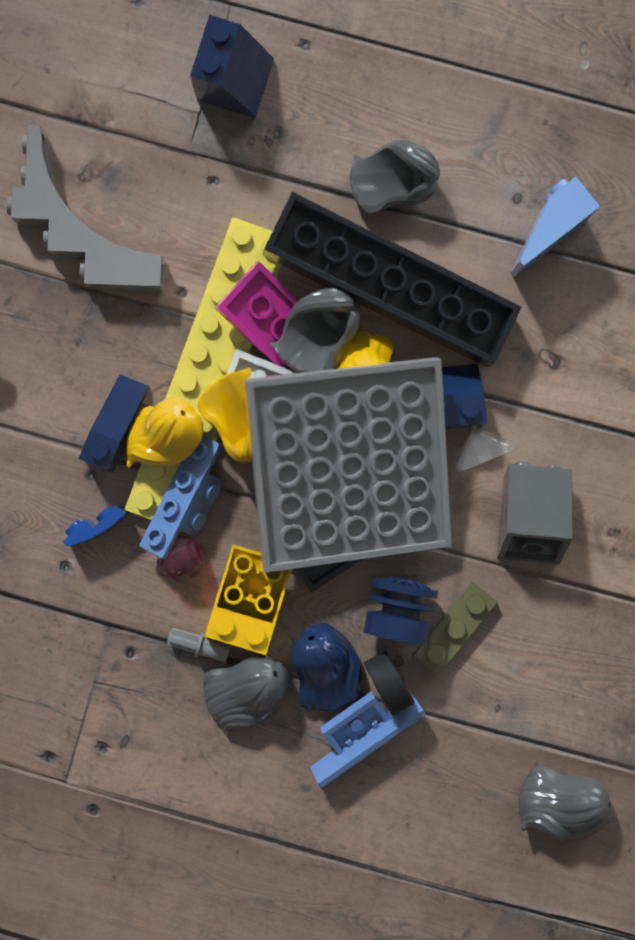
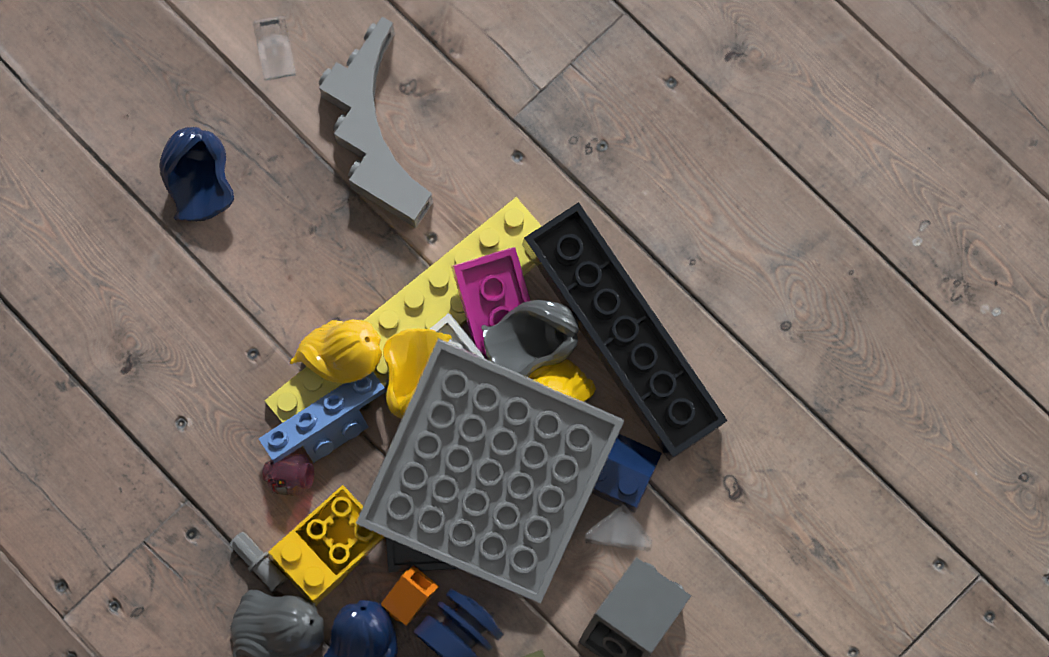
camera: 30 degrees right, 10 degrees down
(84, 531) = (218, 400): blue slope -> none
(113, 423) = (294, 321): dark blue slope -> none
(230, 67) = (589, 67): dark blue slope -> none
(341, 602) = (409, 595): none -> orange brick
(394, 176) = (681, 241): dark grey piece -> none
(565, 210) = (809, 362): light blue slope -> none

